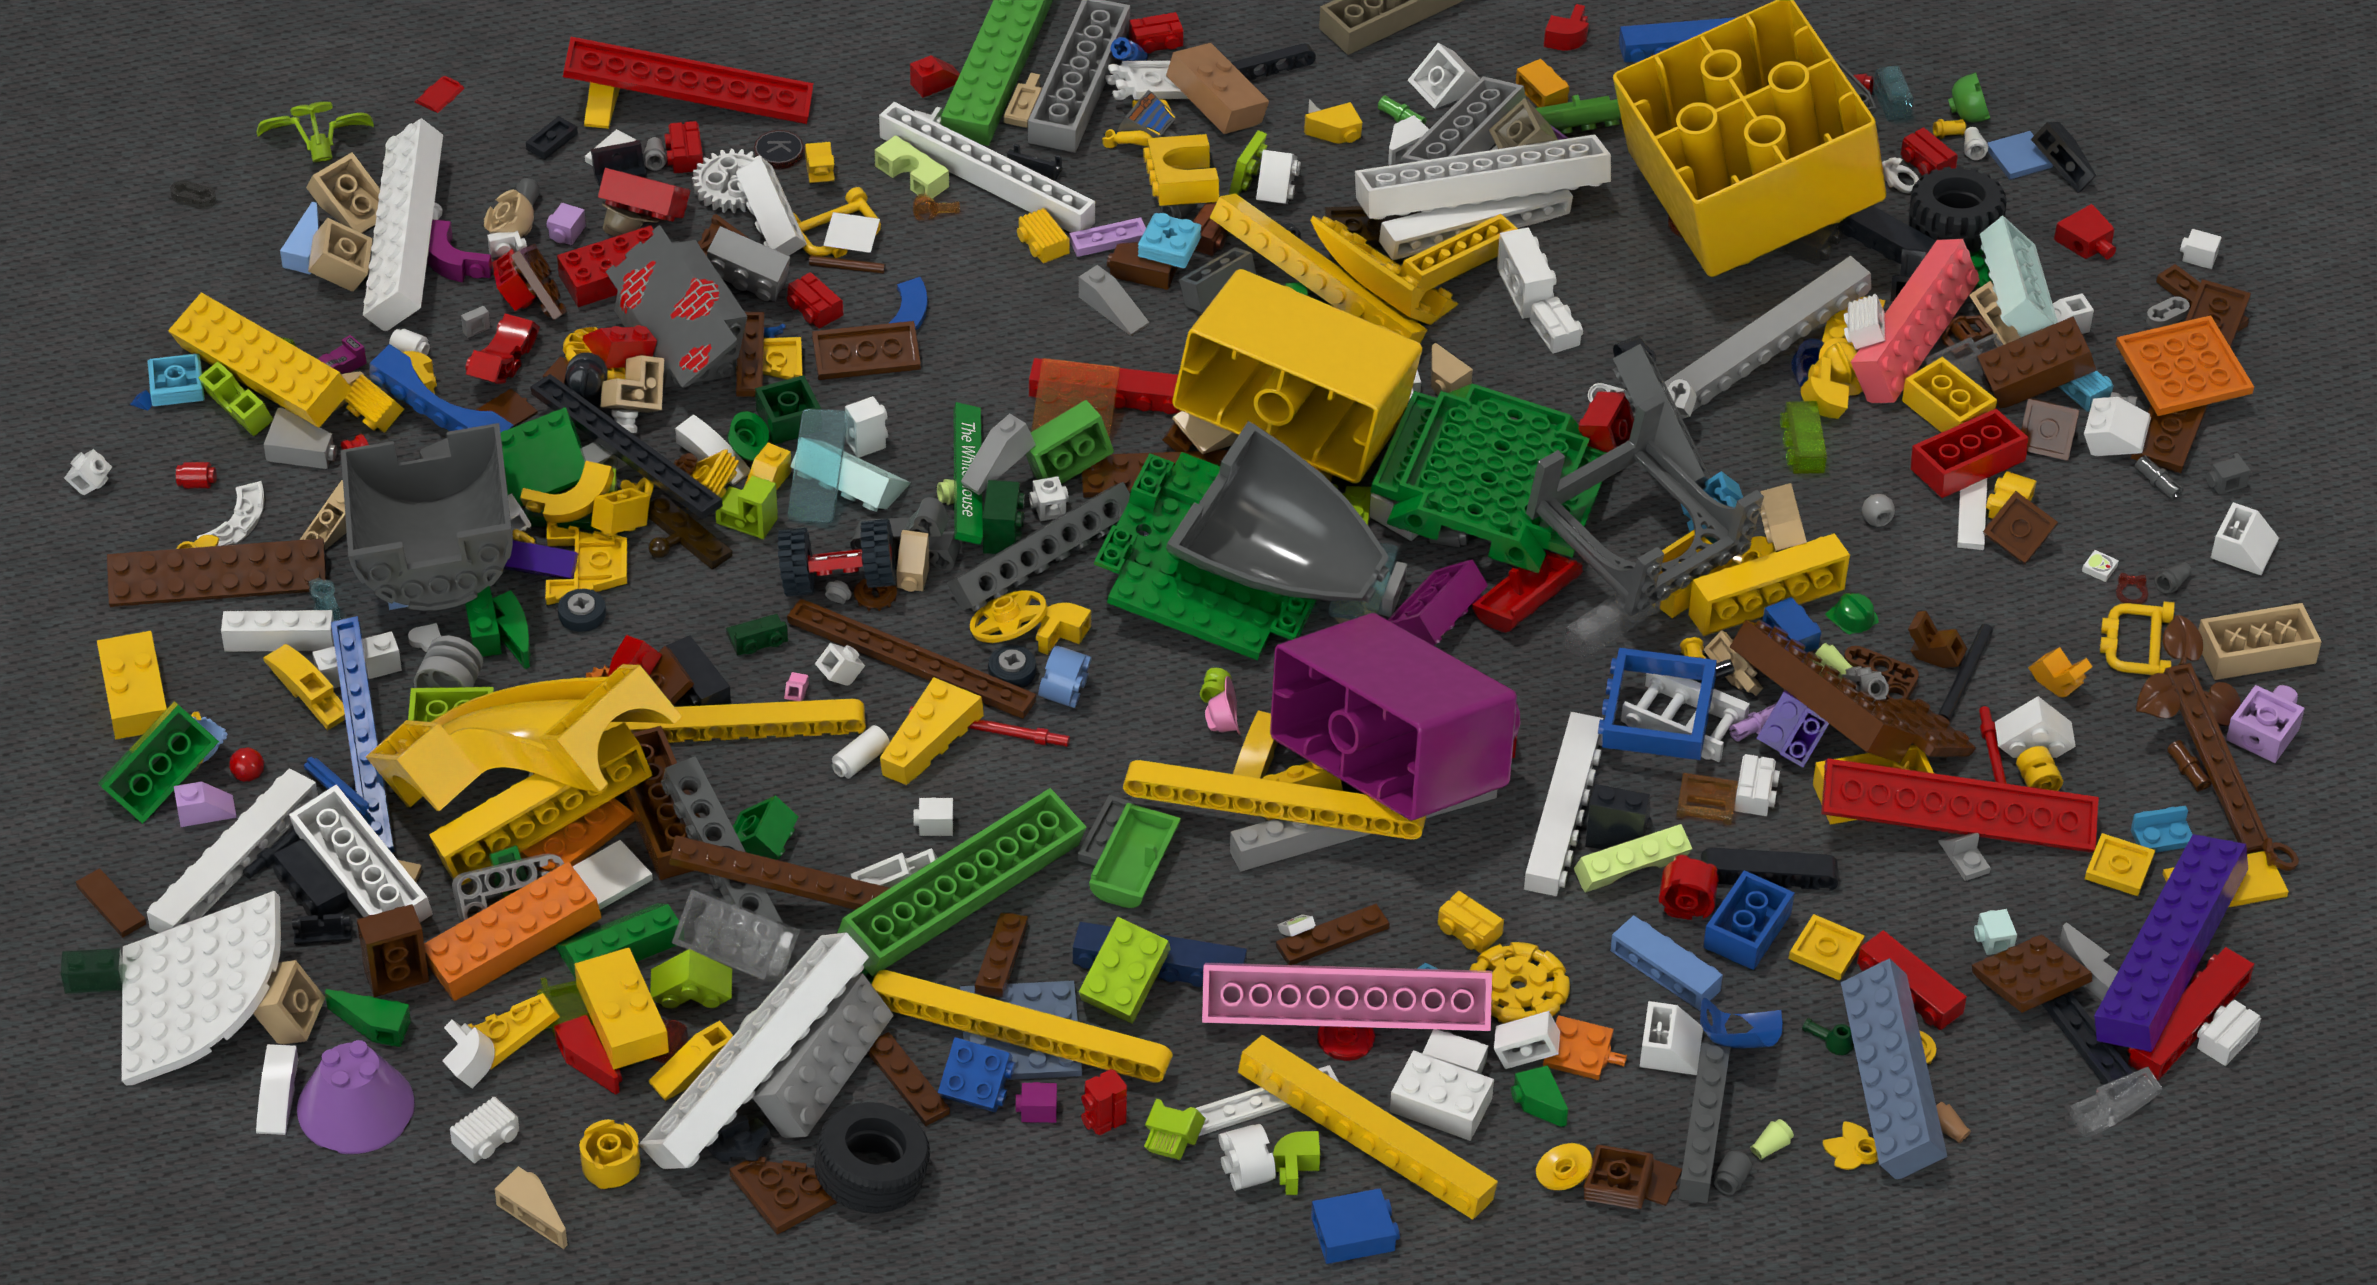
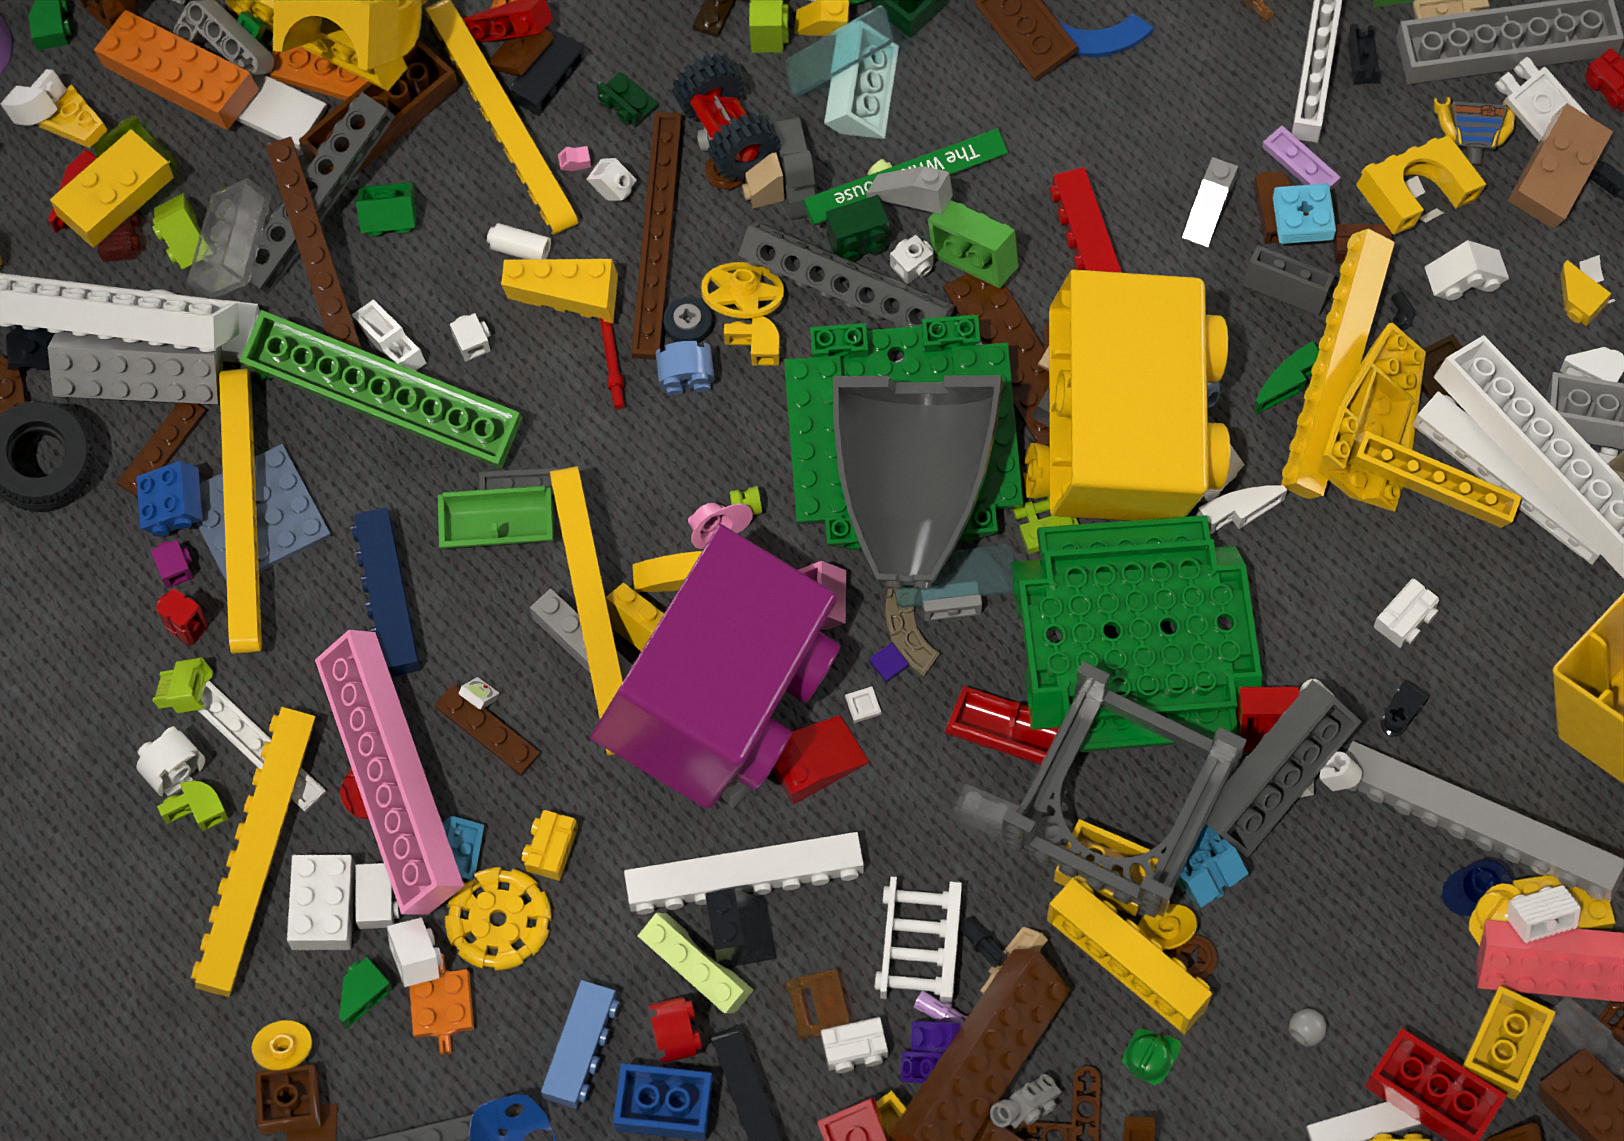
camera: 70 degrees right, 20 degrees up
(643, 931) = (212, 151): green slope -> none
(690, 1061) = (99, 270): yellow slope -> none
(866, 427) = (915, 68): white brick -> none
(1001, 954) = (330, 460): reddish brown plate -> none
(1043, 236) = (1267, 105): yellow brick -> none
(1069, 383) = (1050, 226): clear orange plate -> none
(1124, 970) = (338, 568): lime brick -> none
(1127, 50) = (1562, 66): blue piece -> none
(1248, 164) = (1452, 235): lime plate -> none
(1354, 1225) = (138, 887): blue brick -> none
(1440, 601) = (945, 653): magenta slope -> none
(1448, 371) = (1277, 538): tan slope -> none
(1524, 269) = (1457, 553): white brick -> none
(1653, 740) = (908, 953): blue window -> none
(1670, 1039) = (476, 1079): white slope -> none
(1692, 647) = (1007, 919): yellow bush -> none
(1782, 517) = (1222, 934): tan brick -> none
(1795, 621) = (1091, 1002): blue brick -> none
(1803, 437) = (1375, 915): clear neon green brick -> none
(1830, 396) = (1440, 910): yellow brick -> none
(1832, 657) = (1066, 1059): yellowish green cone -> none

